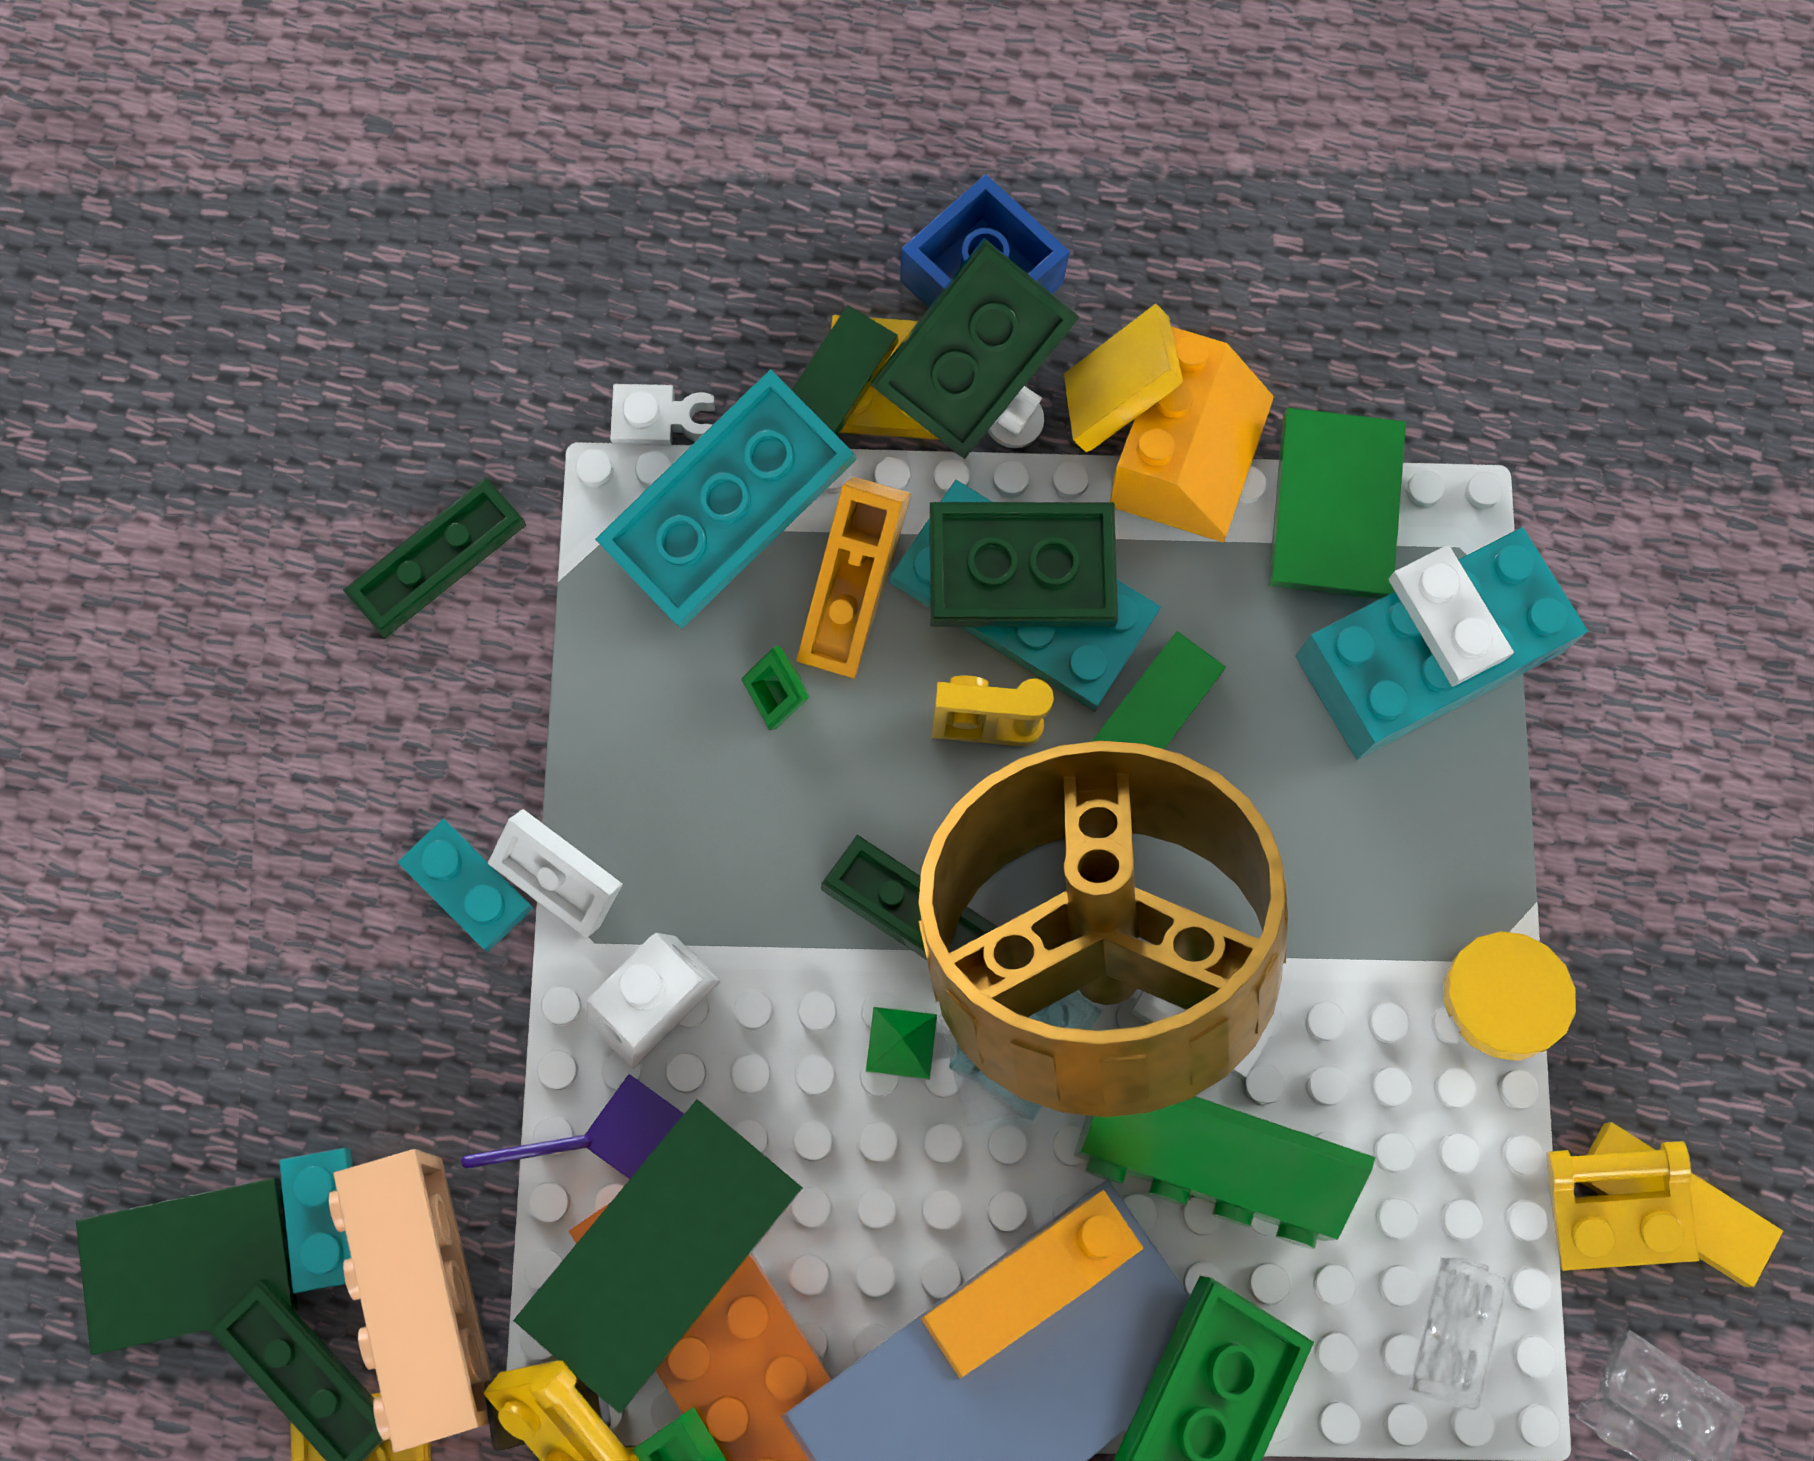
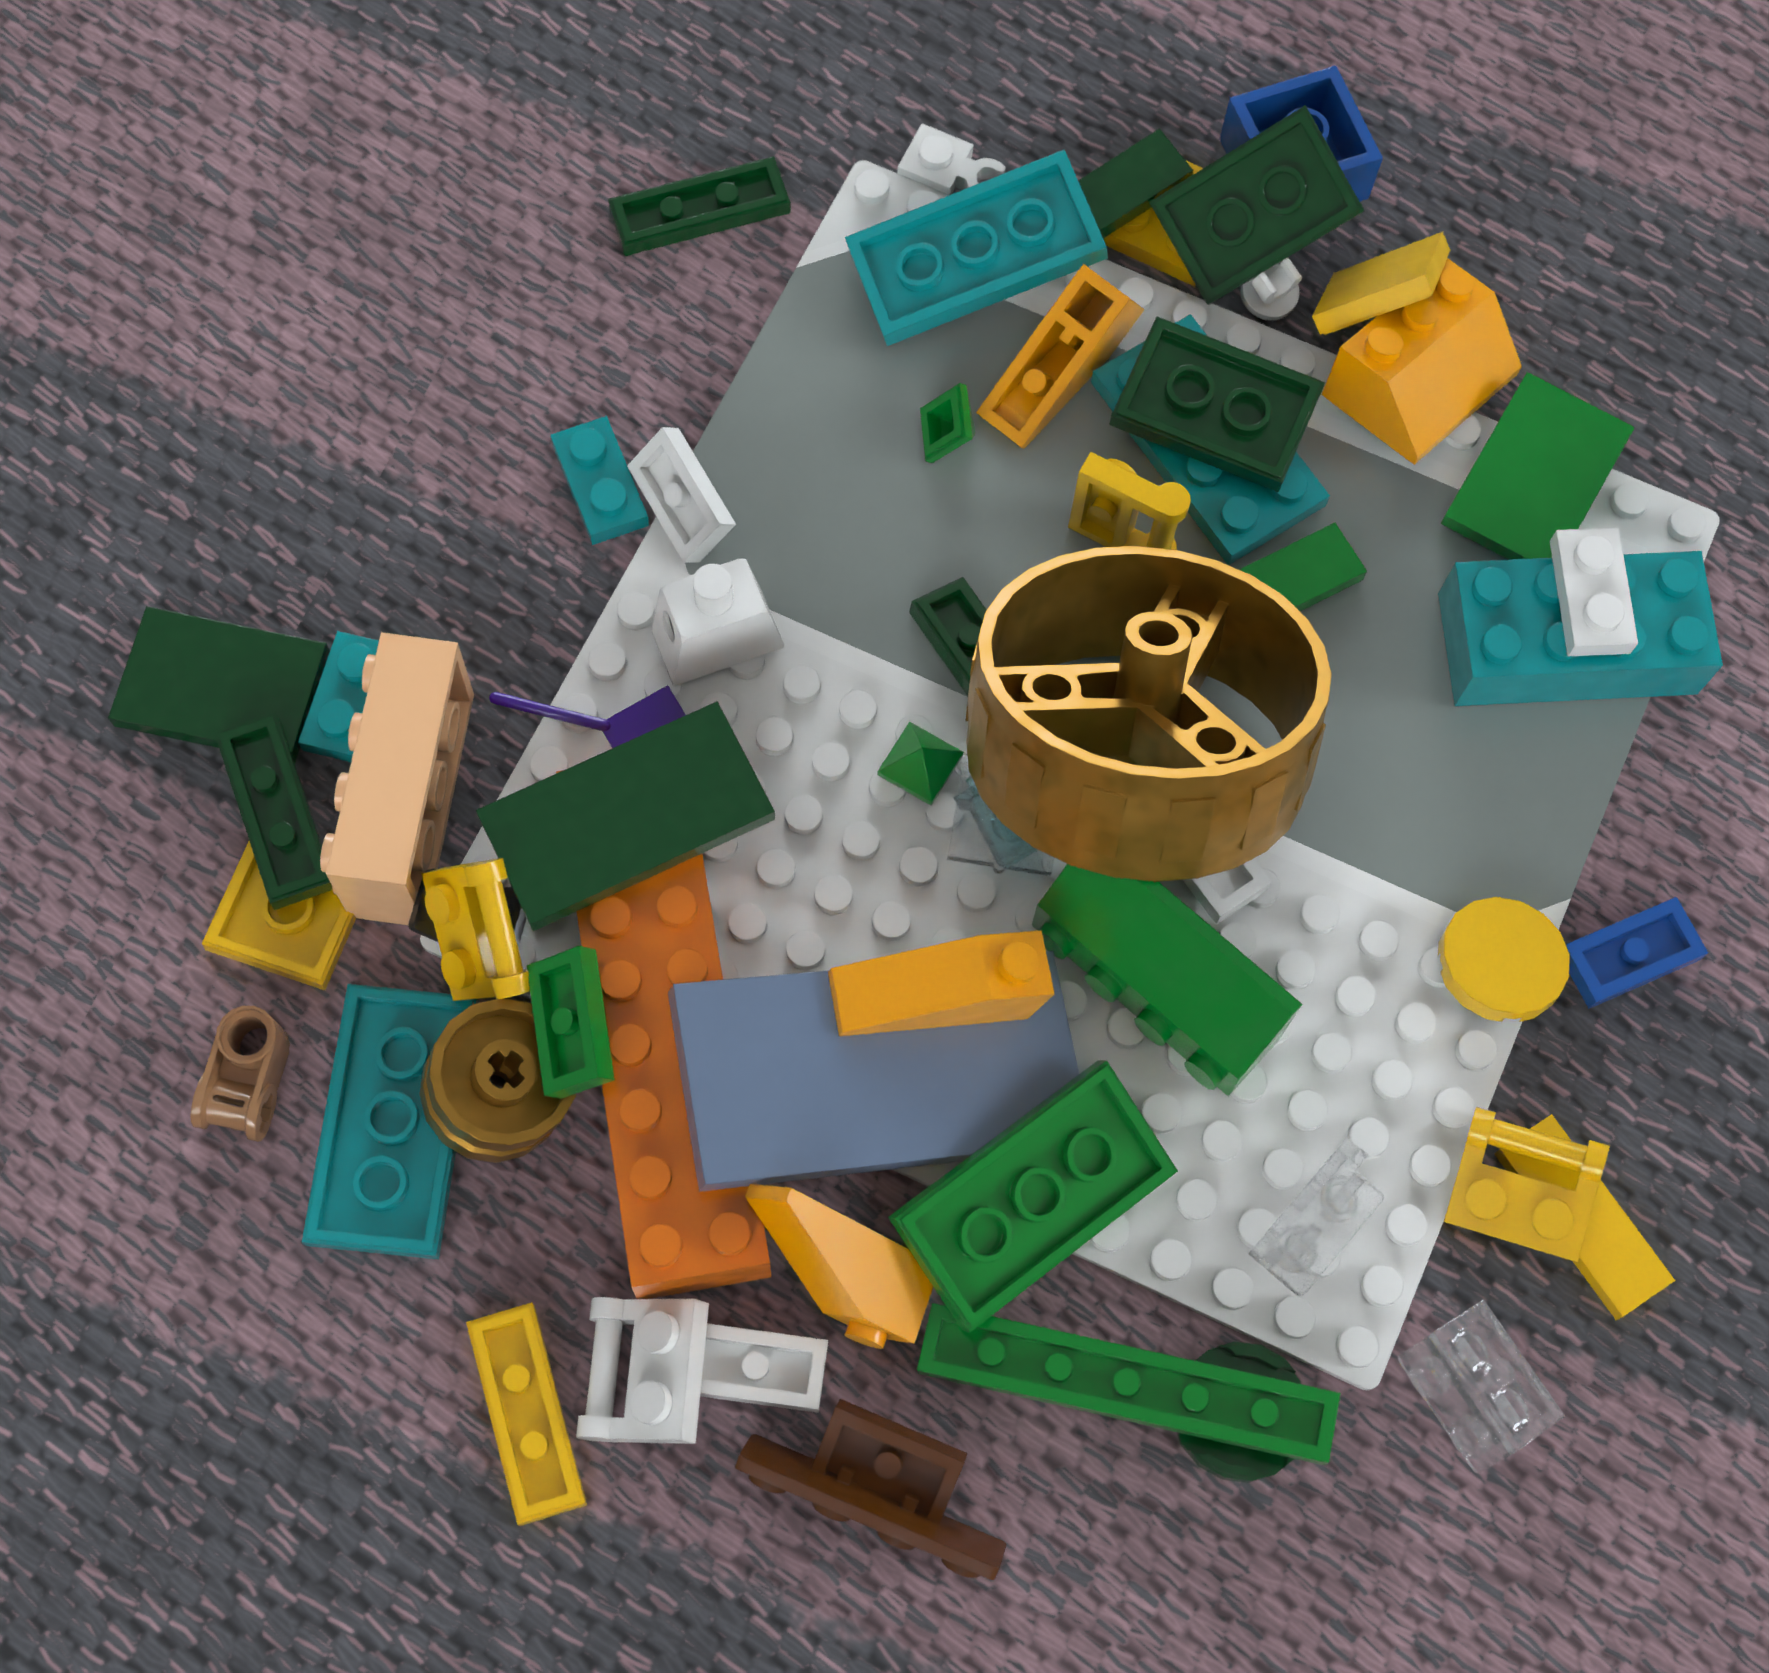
camera: 25 degrees right, 5 degrees down
(1616, 932) = (1634, 952): none -> blue plate

